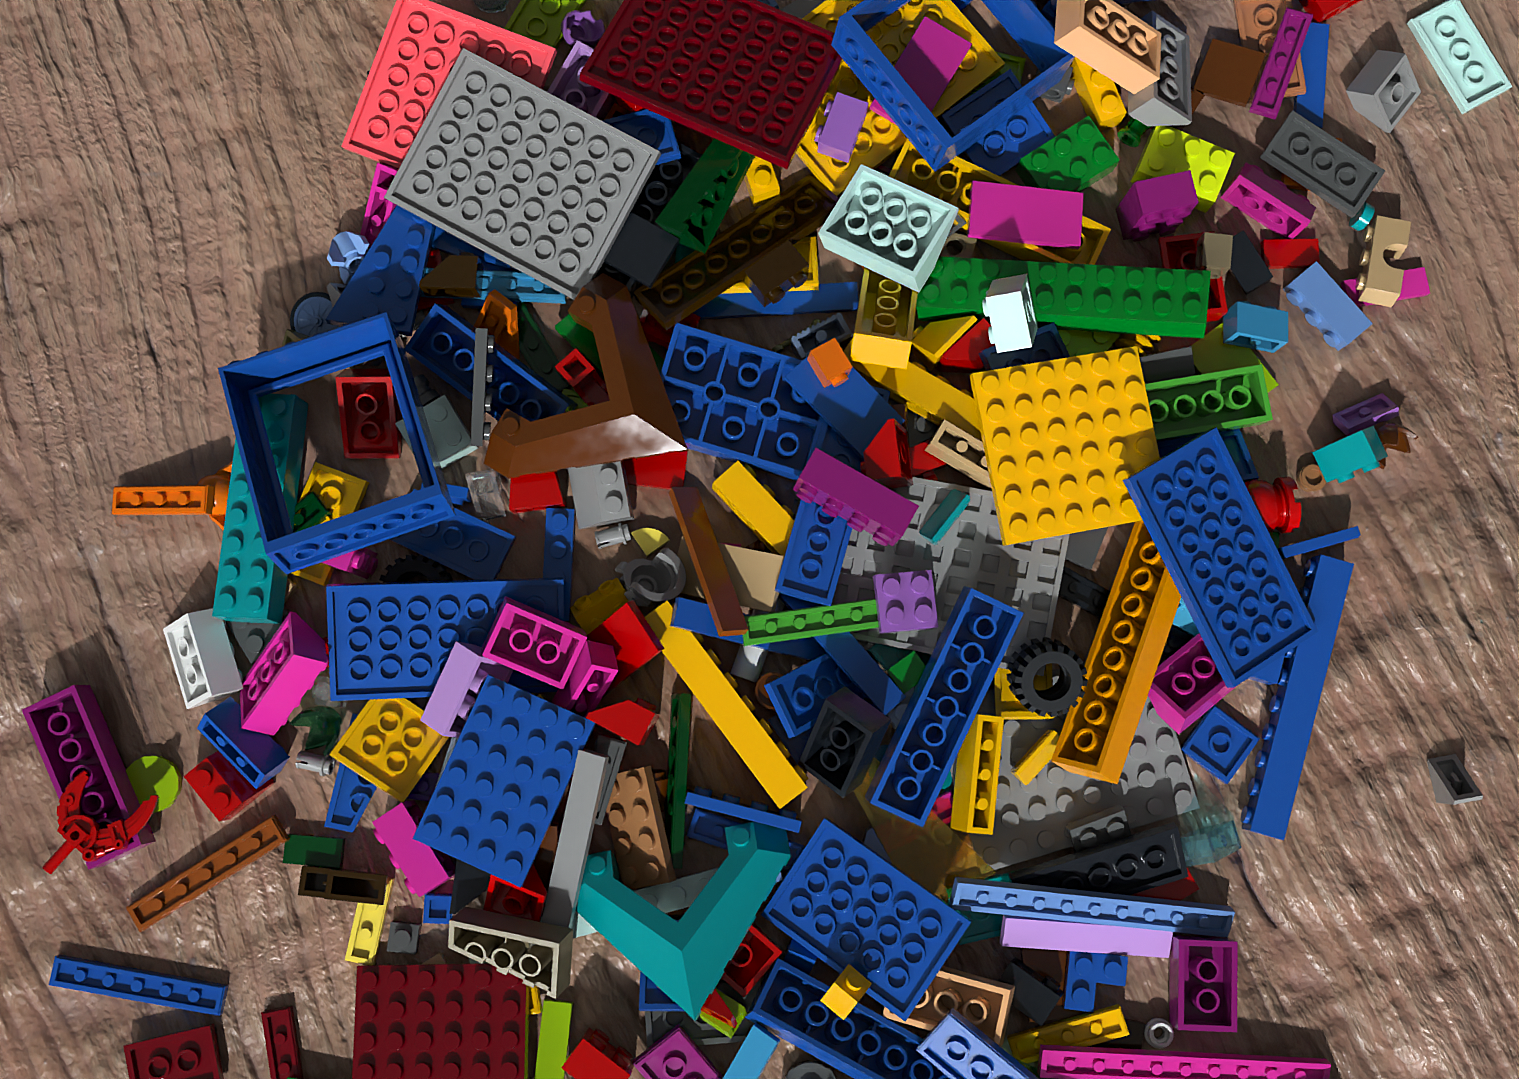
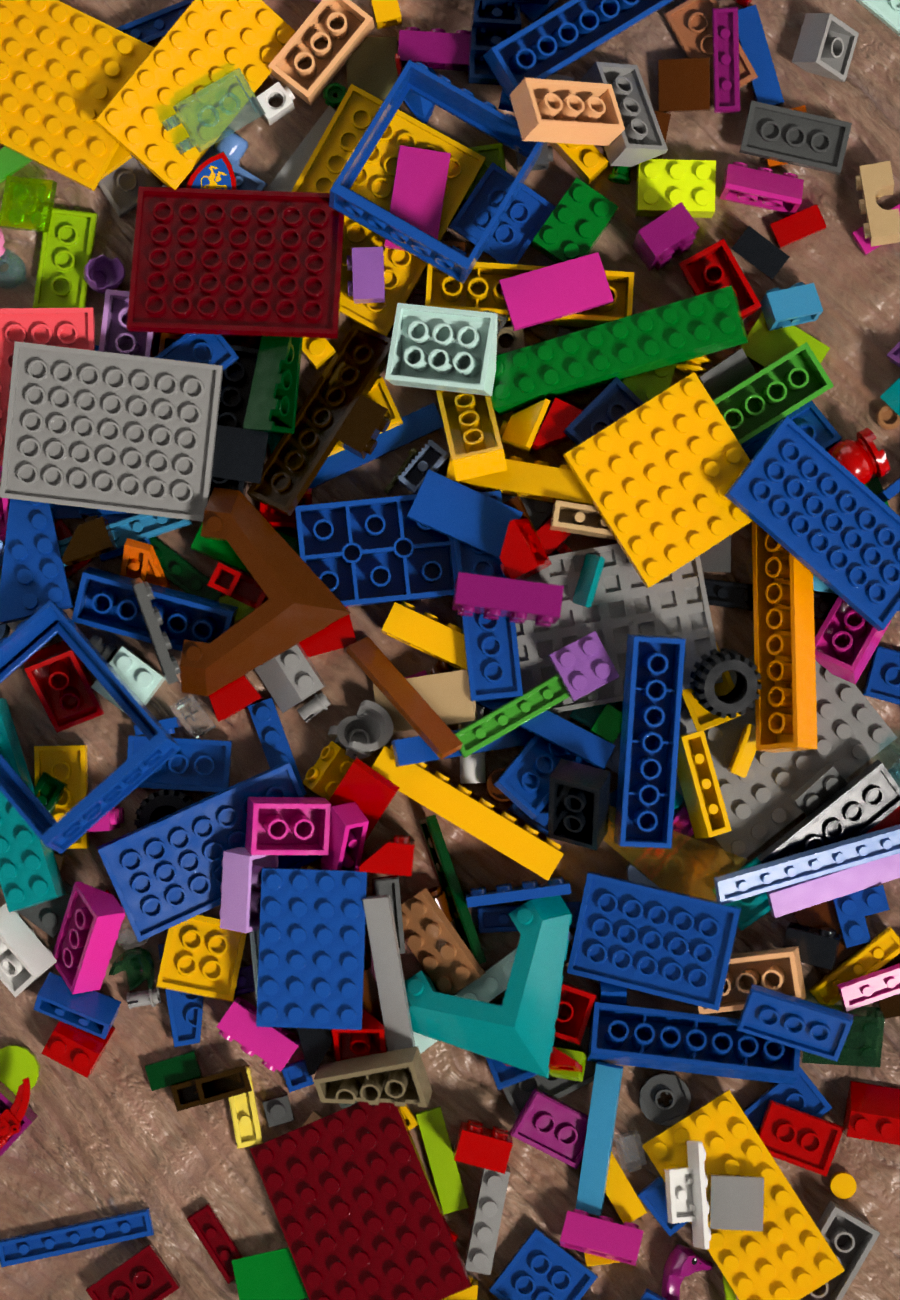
camera: 20 degrees left, 5 degrees up
(207, 873) = (93, 1124): dark orange tile -> none
(650, 539) = (346, 697): light yellow tile -> none
(830, 363) = (441, 491): orange brick -> none
(846, 992) = (661, 1006): yellow brick -> none
(1010, 313) = (577, 389): light aqua brick -> none
(1214, 253) = (730, 263): dark tan brick -> none
(1327, 306) = (846, 262): medium blue brick -> none
(1363, 217) = (848, 169): teal tile -> none

